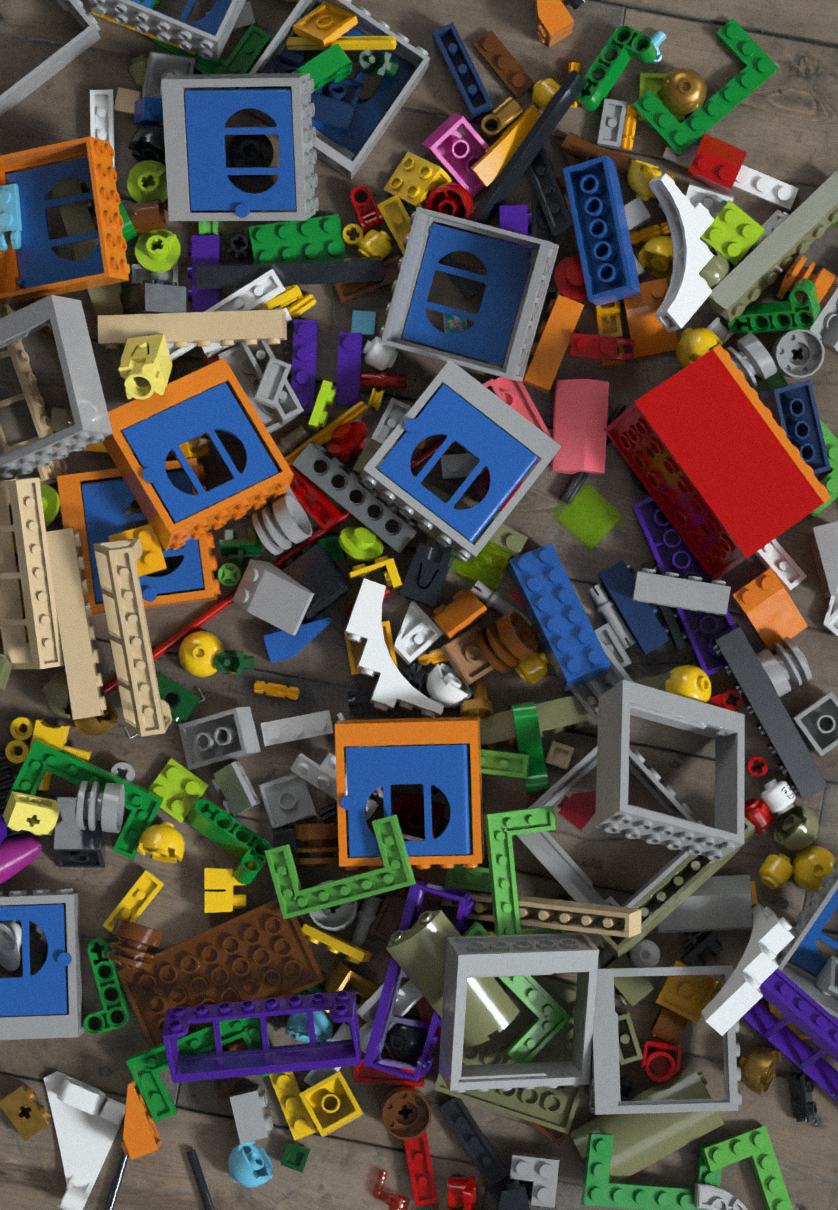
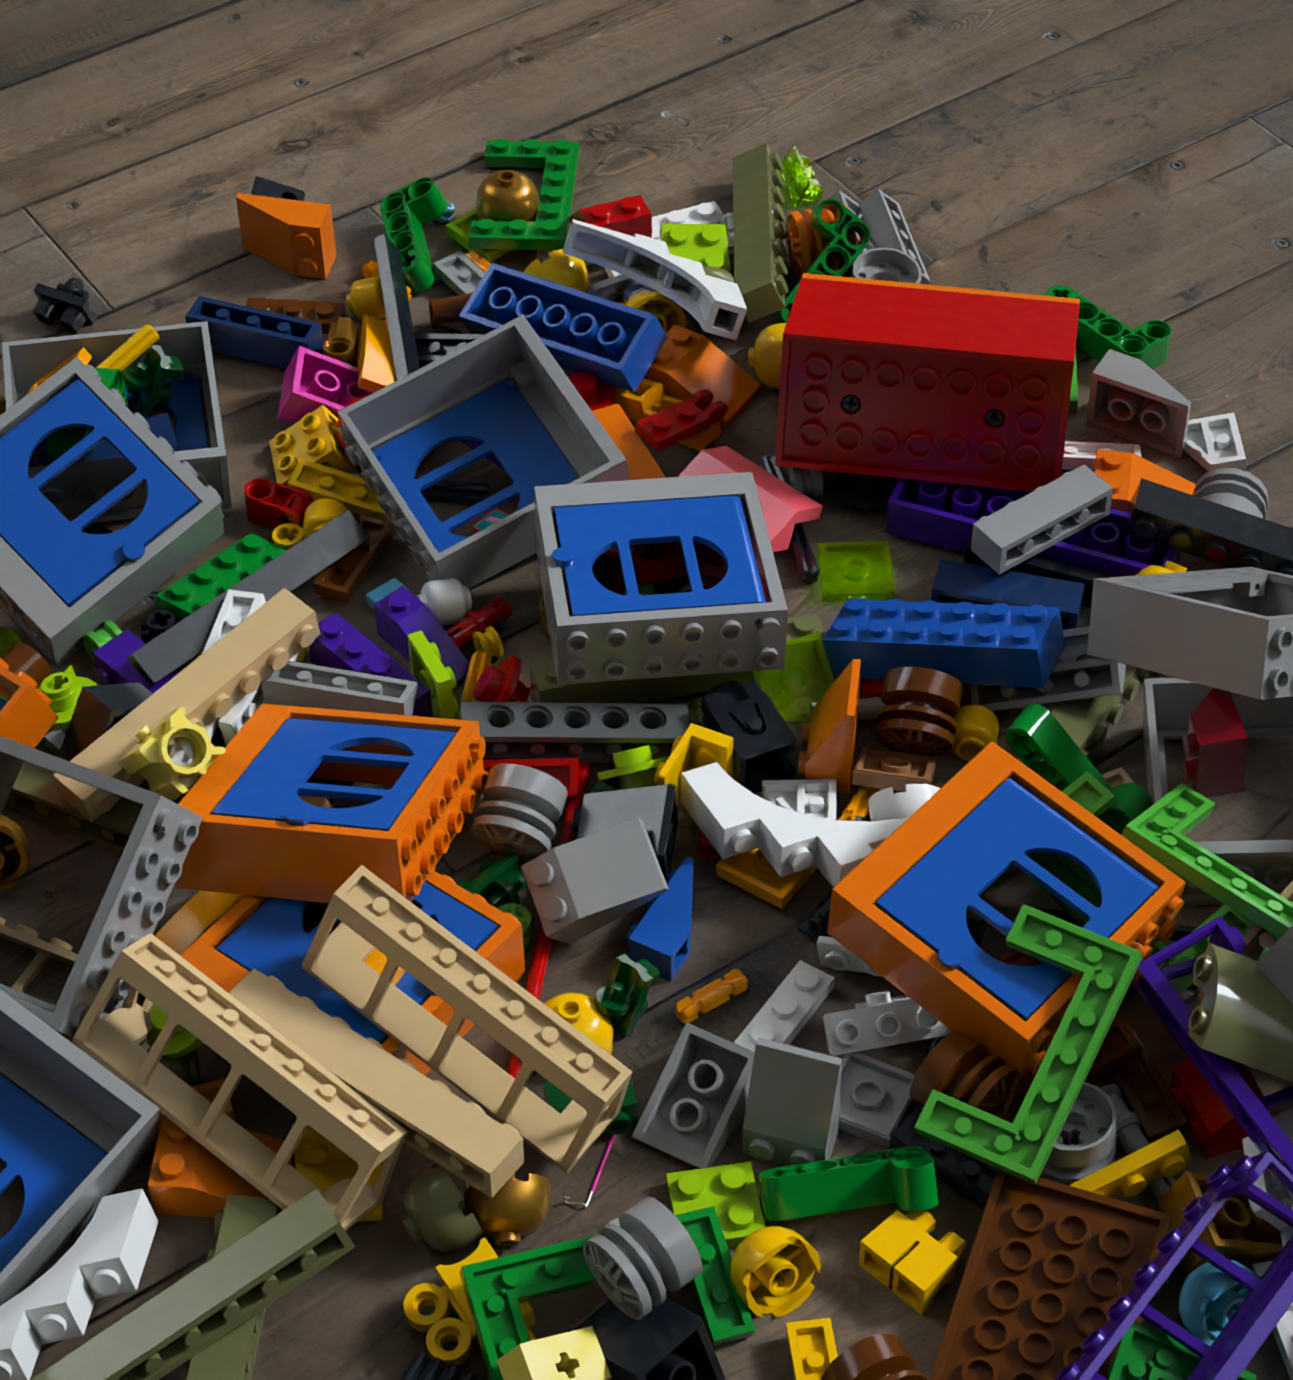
camera: 45 degrees left, 40 degrees down
(272, 382) = (348, 680): light grey tile -> none
(391, 418) = (530, 644): light grey plate -> none

